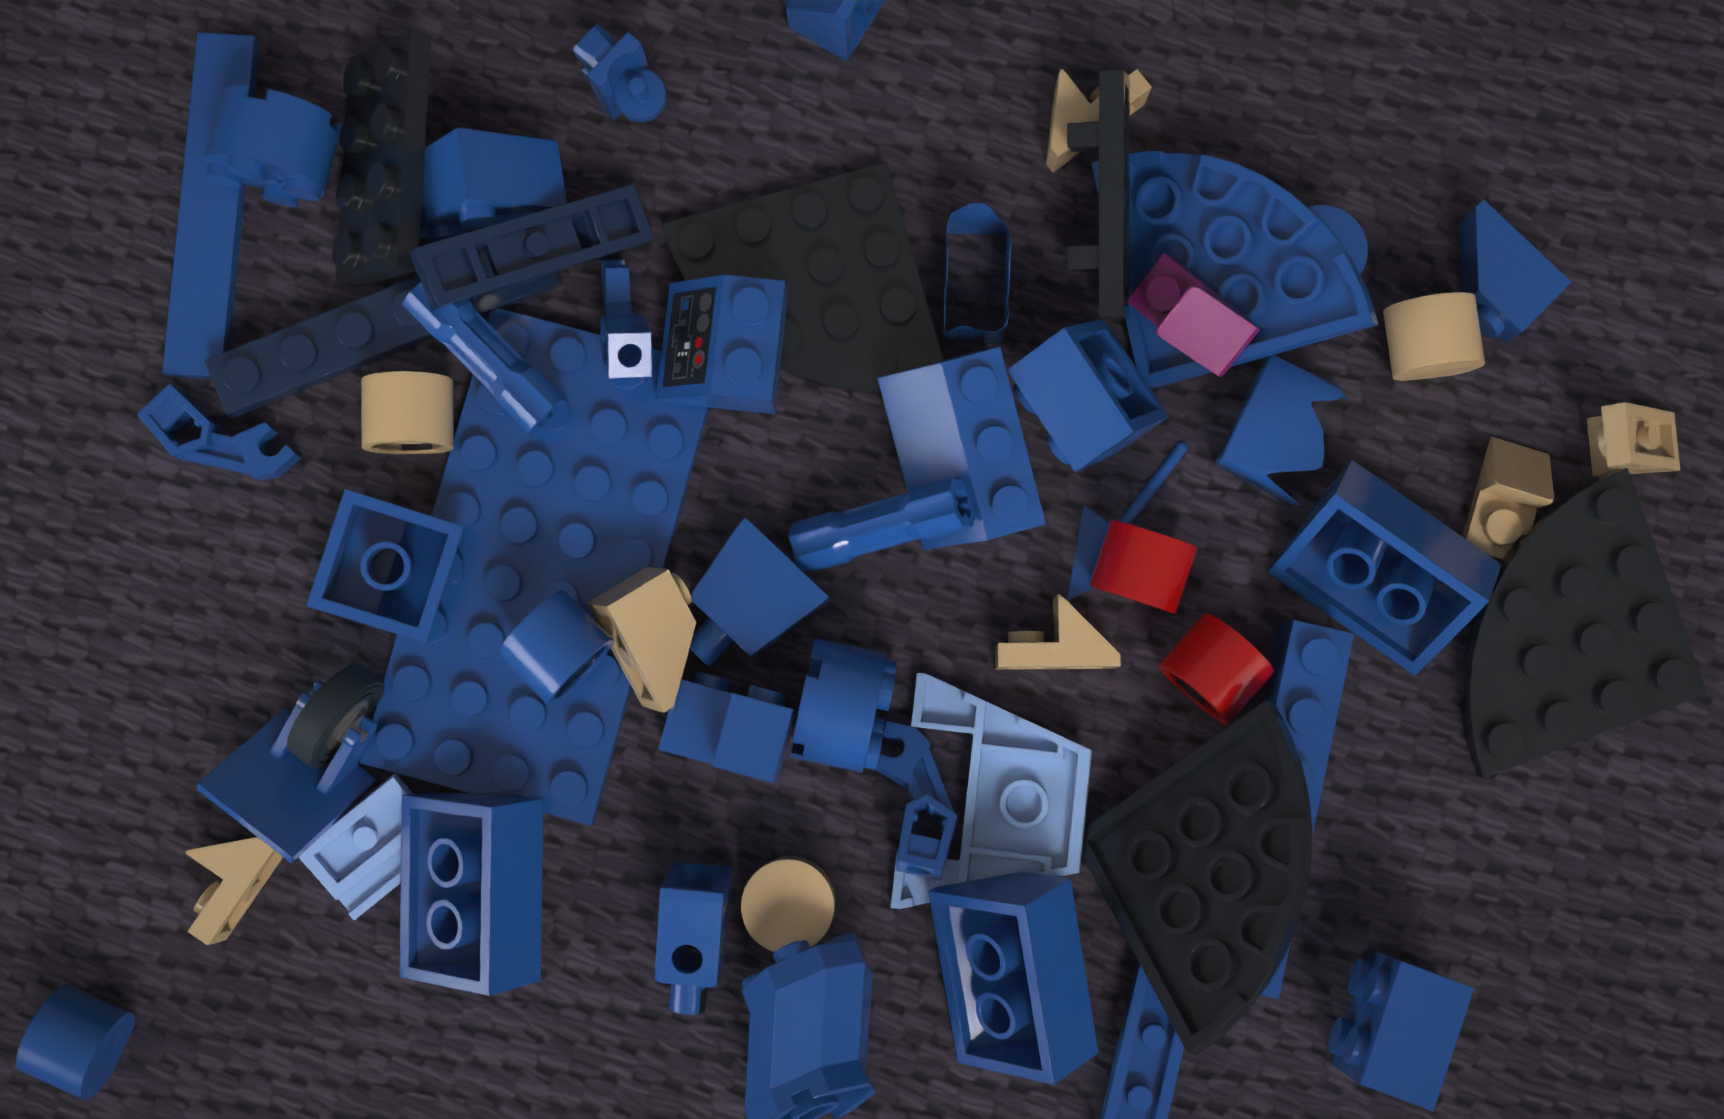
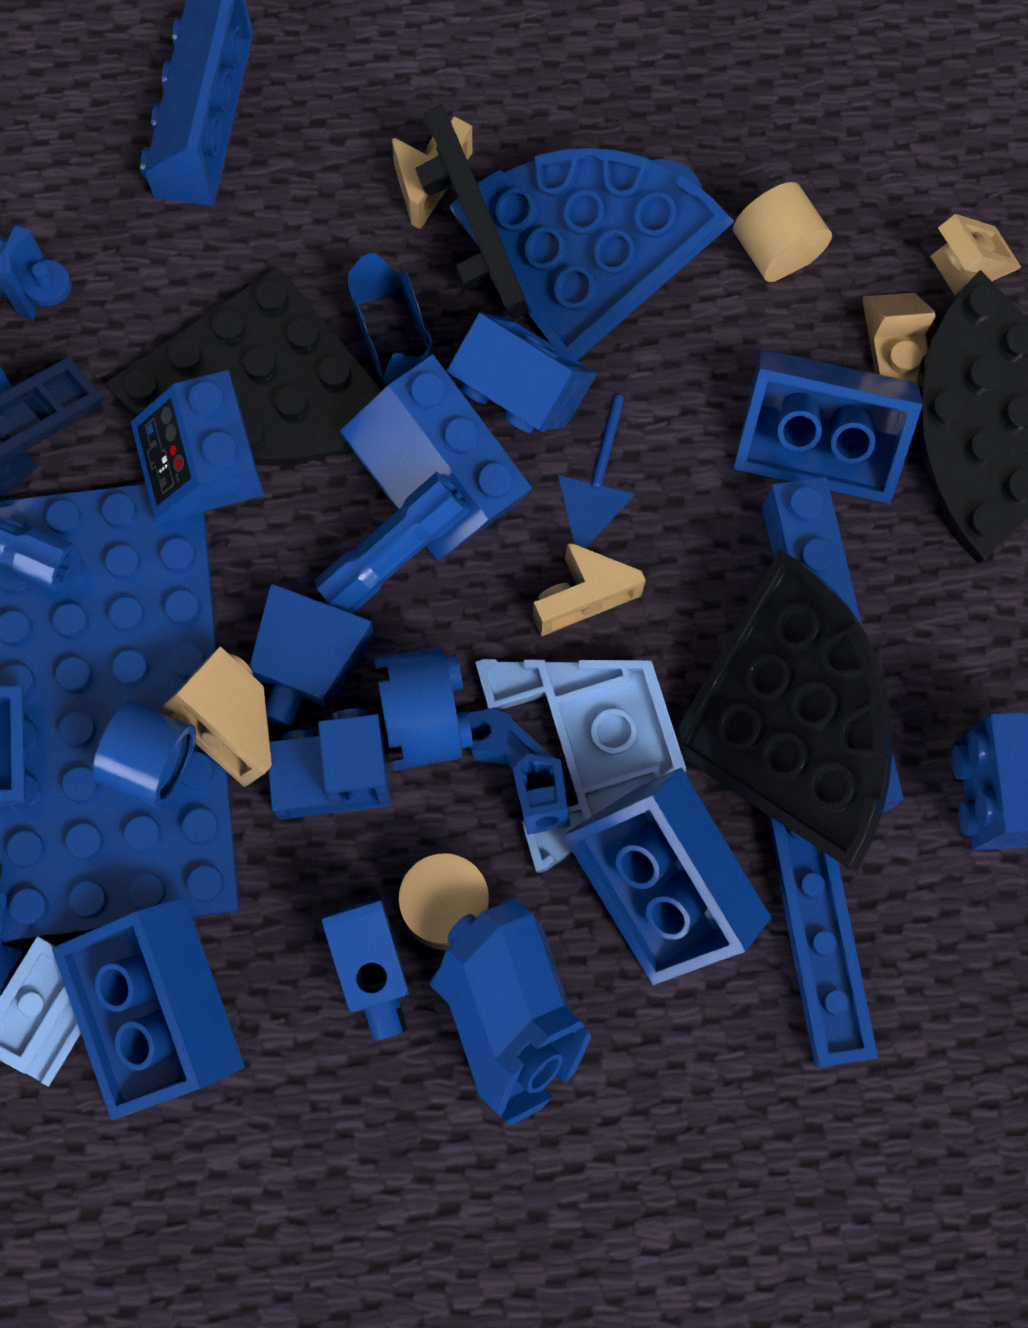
camera: 30 degrees left, 10 degrees down
(622, 334) = (105, 476): blue piece -> none
(1143, 566) = (628, 495): red piece -> none
(1192, 316) = (582, 279): magenta slope -> none
(1218, 667) = (726, 551): red piece -> none
(1278, 427) = (690, 347): blue piece -> none
(1504, 274) = (816, 161): blue slope -> none

